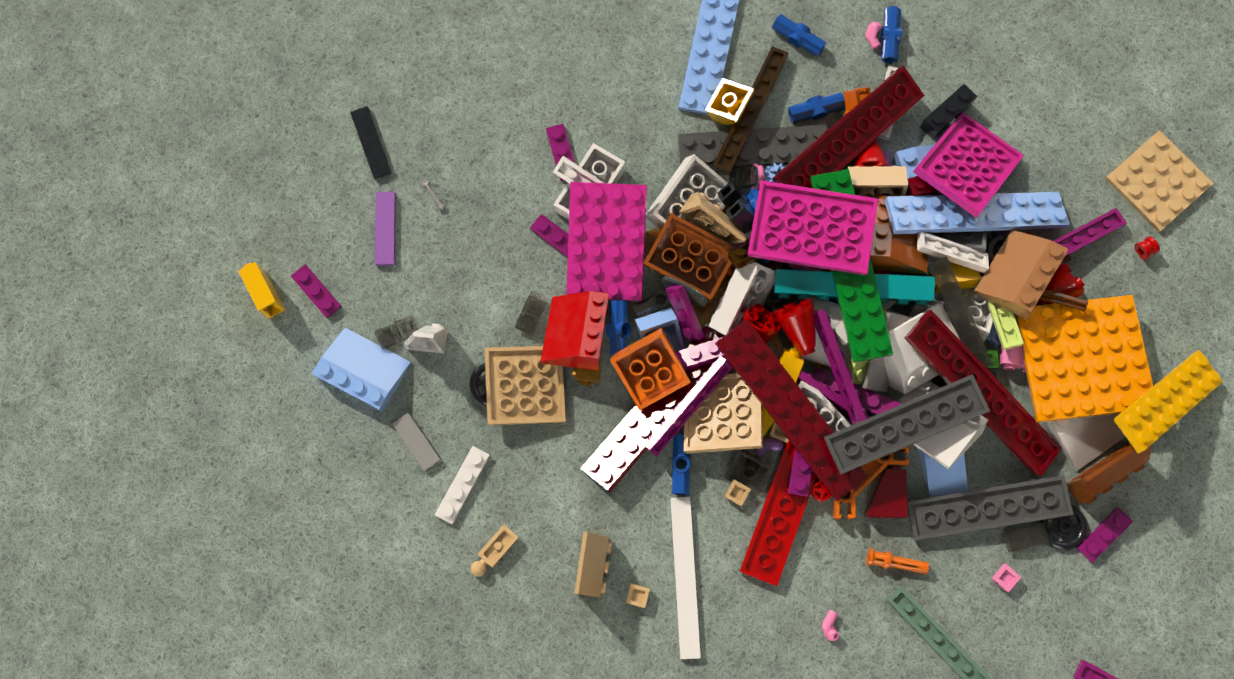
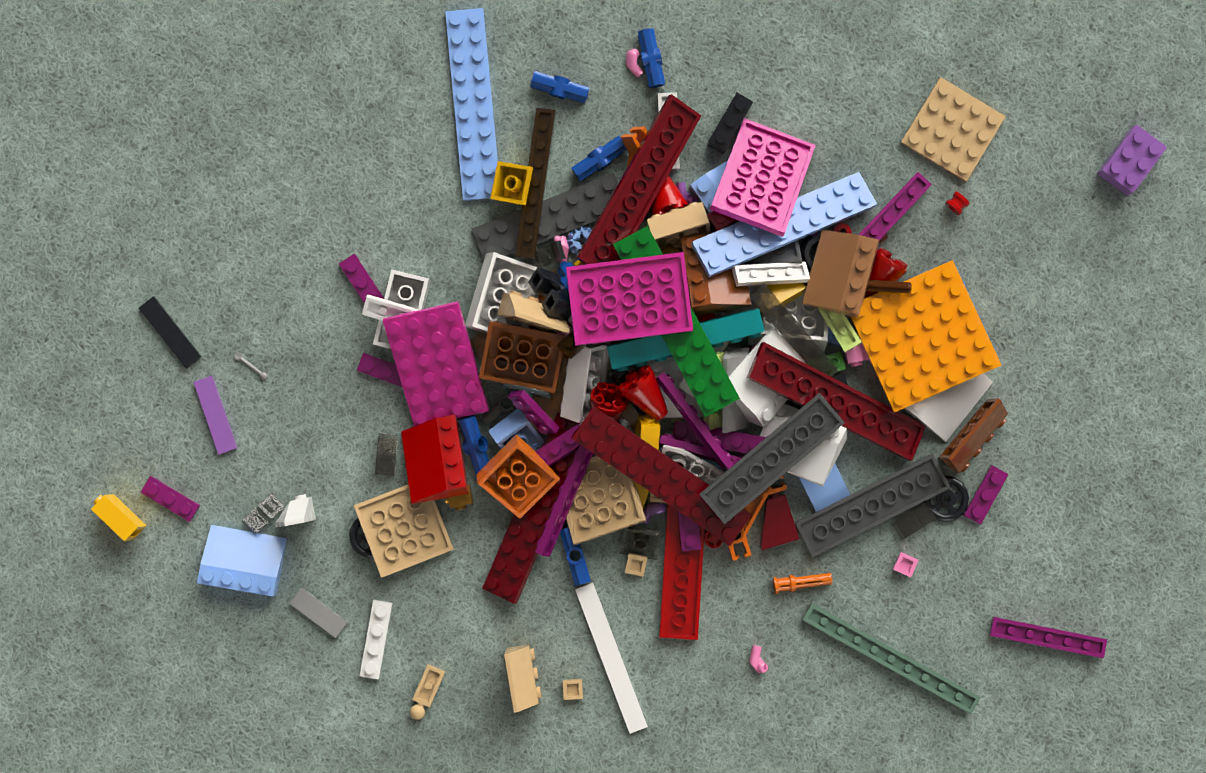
camera: 25 degrees left, 10 degrees up
(1168, 401) = (1009, 356): yellow plate -> none

